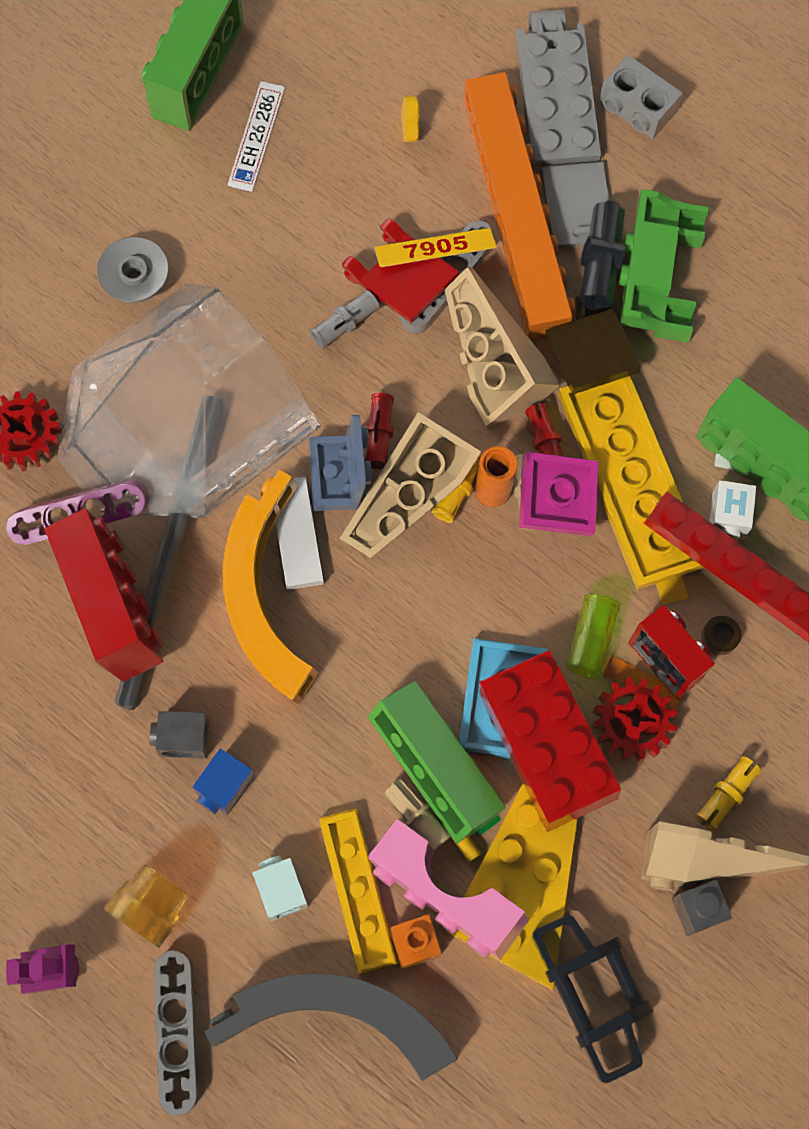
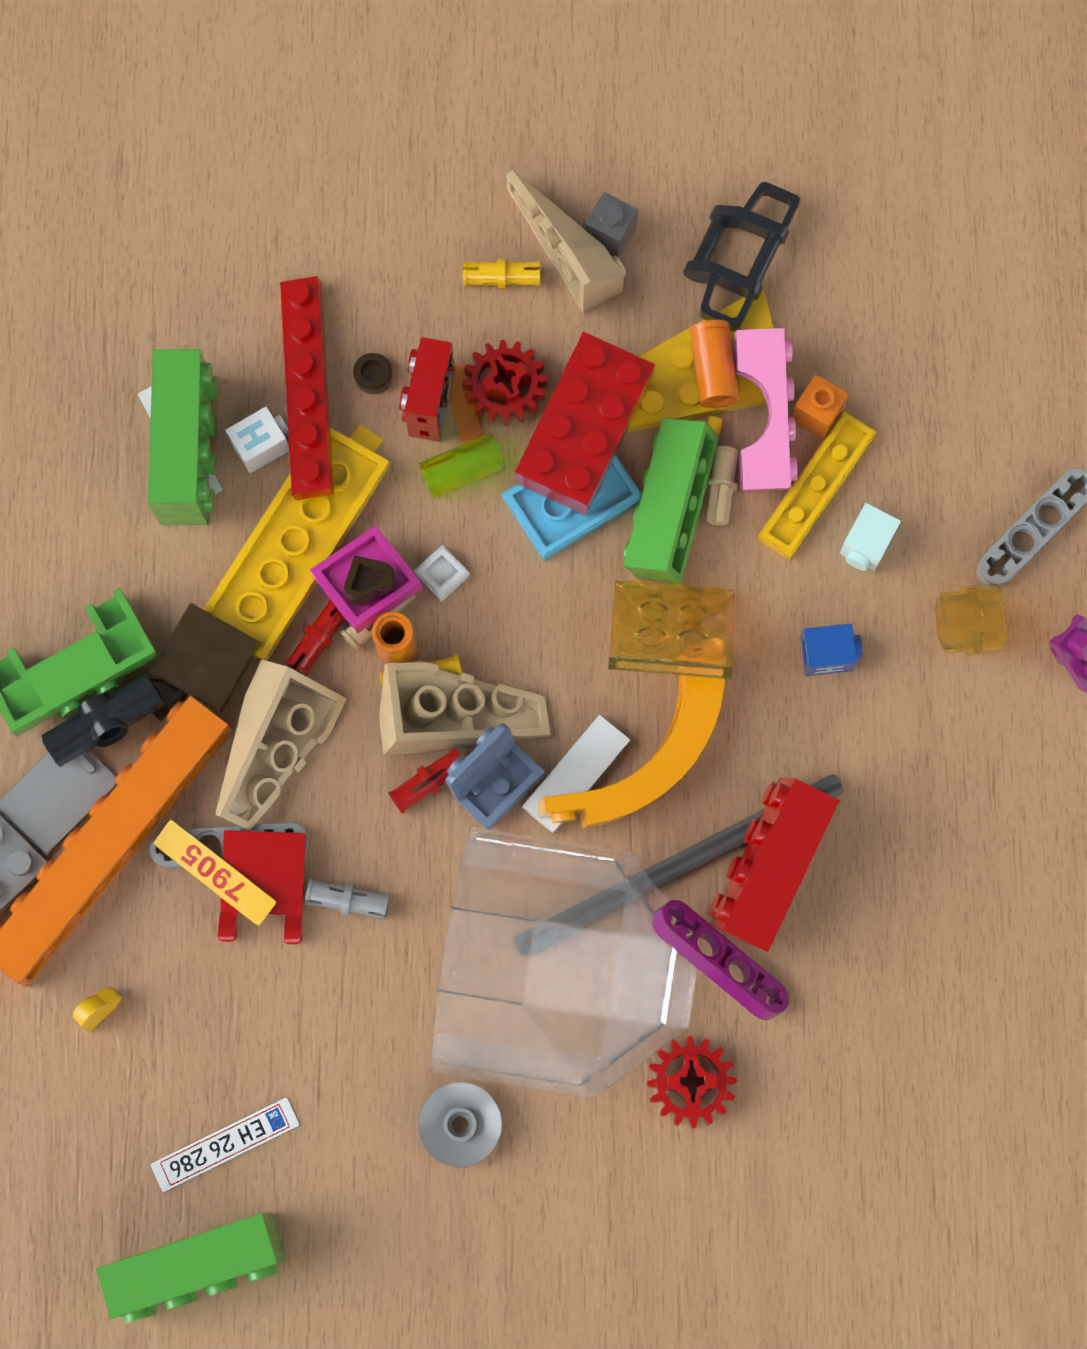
camera: 125 degrees left, 5 degrees up
(180, 734) = (823, 715): flat silver brick -> none
(334, 672) = (672, 629): none -> clear yellow plate
(343, 995) = (907, 431): dark grey arch -> none
(516, 882) = (714, 363): none -> orange pin
(523, 561) = (441, 573): none -> white tile
(554, 488) = (367, 580): none -> dark brown tile

